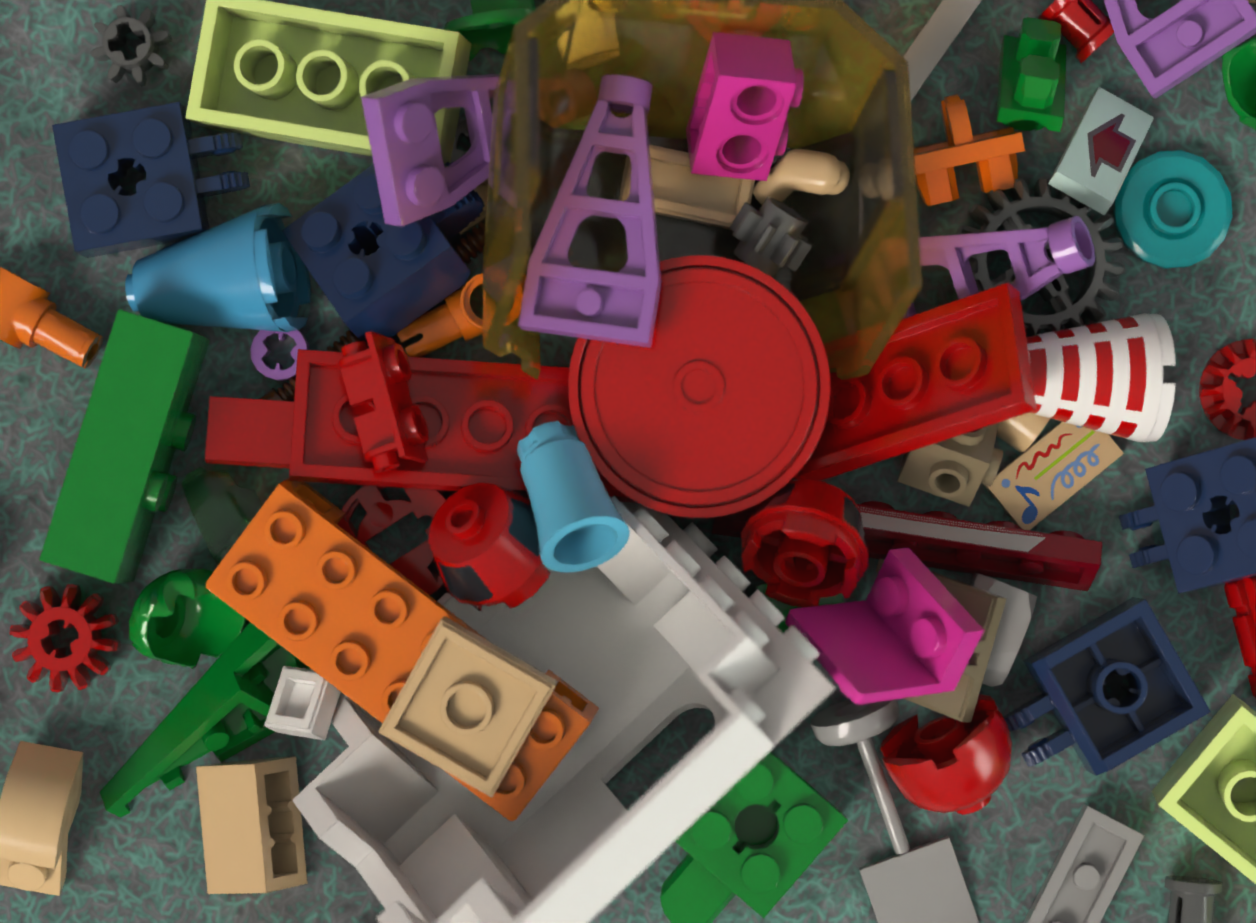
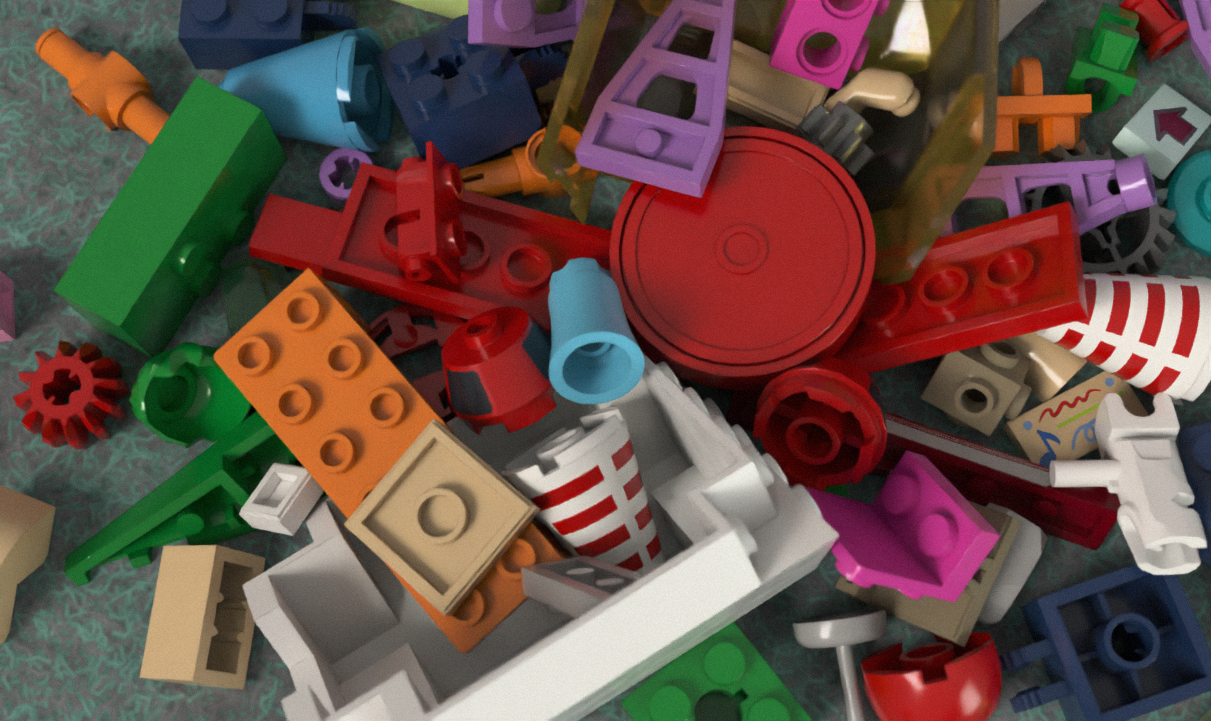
camera: 20 degrees right, 15 degrees down
(599, 650) = (591, 492): none -> white cone
(617, 756) = (575, 583): none -> light grey plate
(1119, 534) = (1148, 476): none -> white piece

